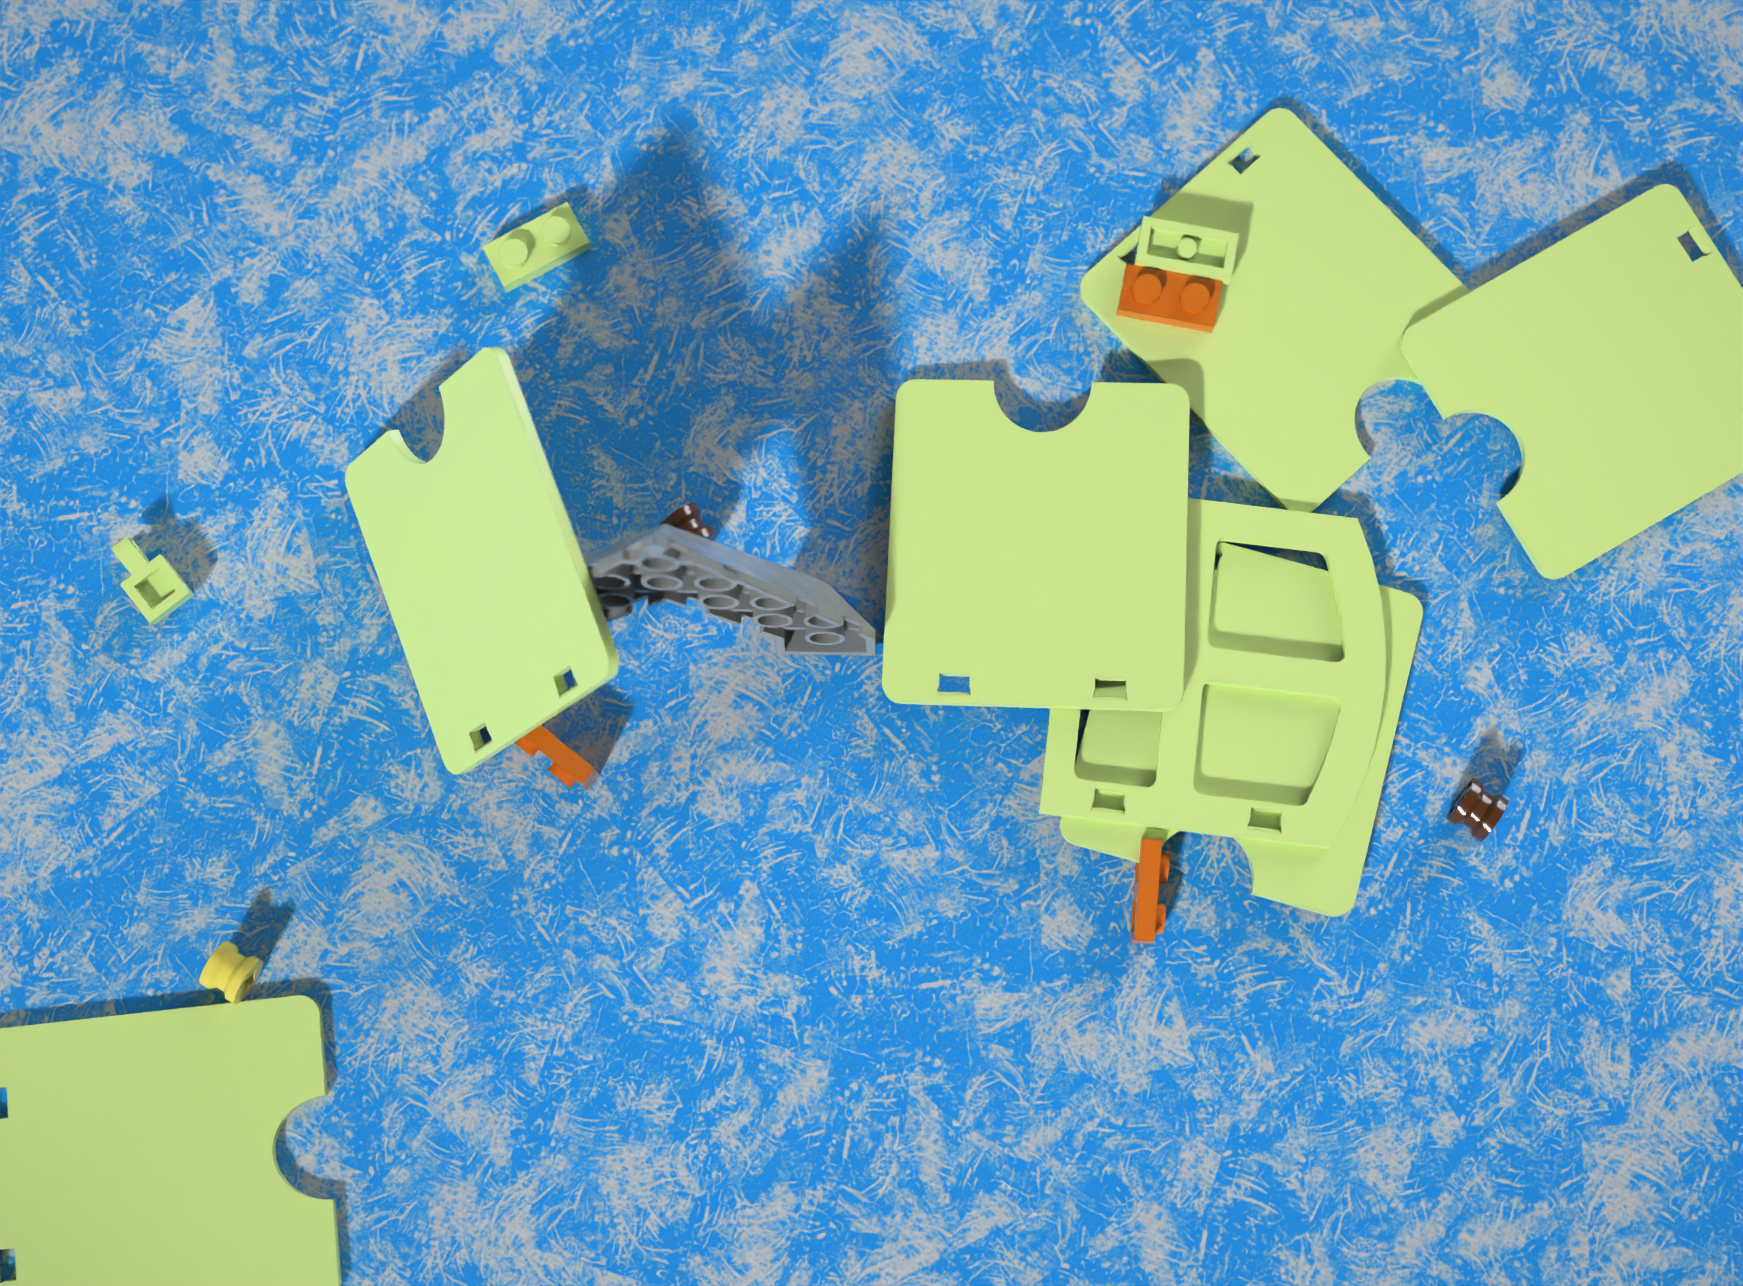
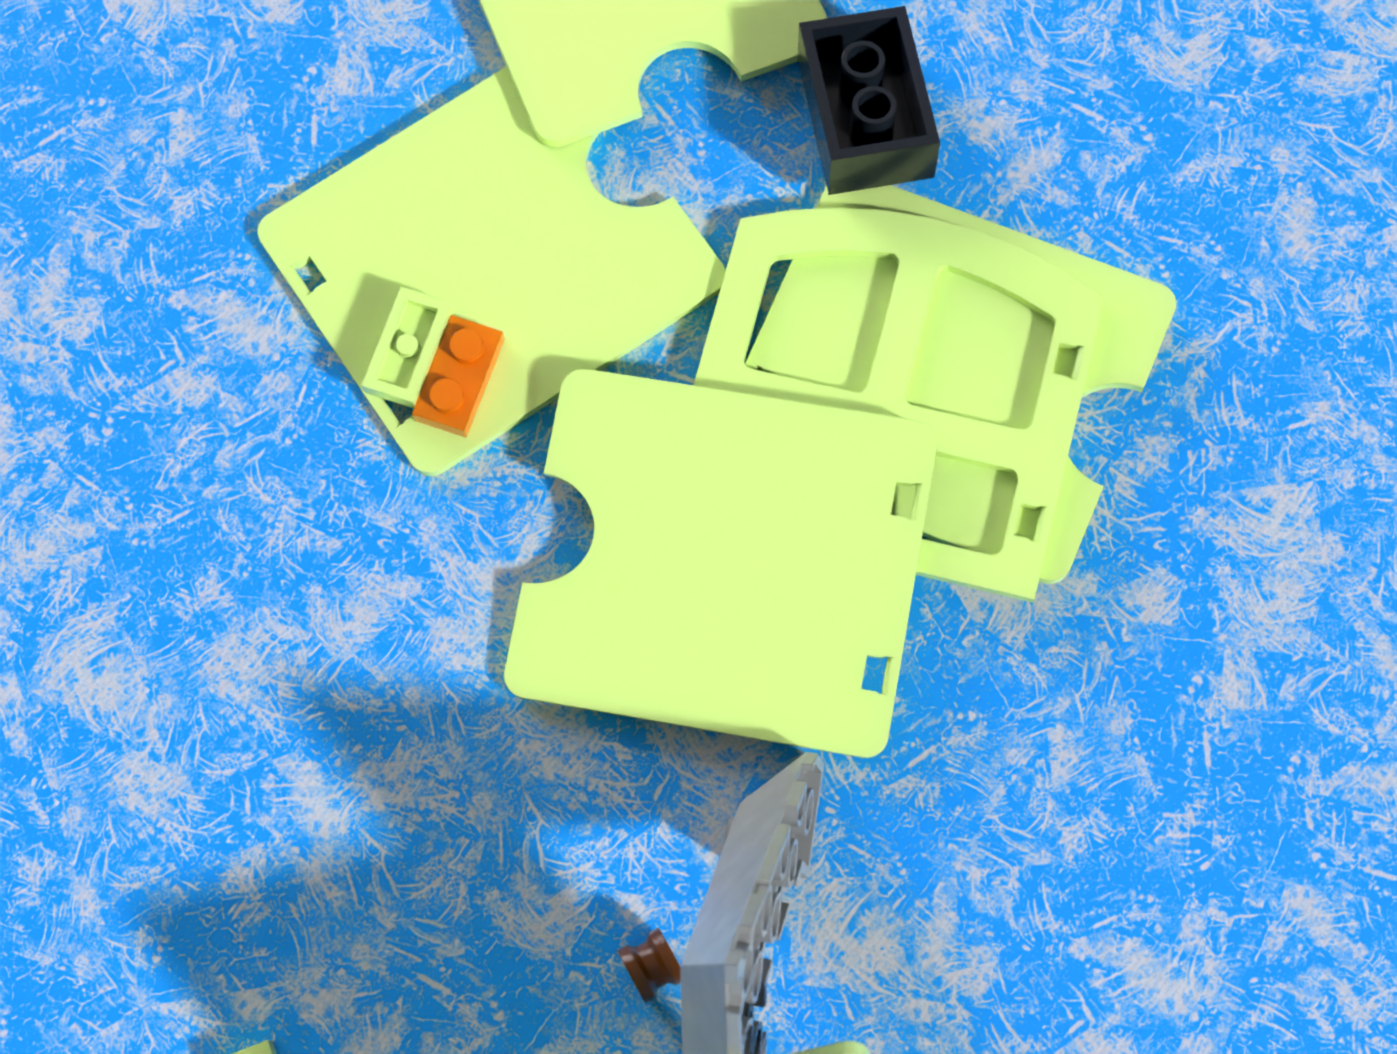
camera: 80 degrees left, 5 degrees down
(1147, 913) = (1150, 504): orange plate -> none
(1477, 809) = (1073, 149): reddish brown wheel -> none
(1487, 611) = (867, 100): none -> black brick

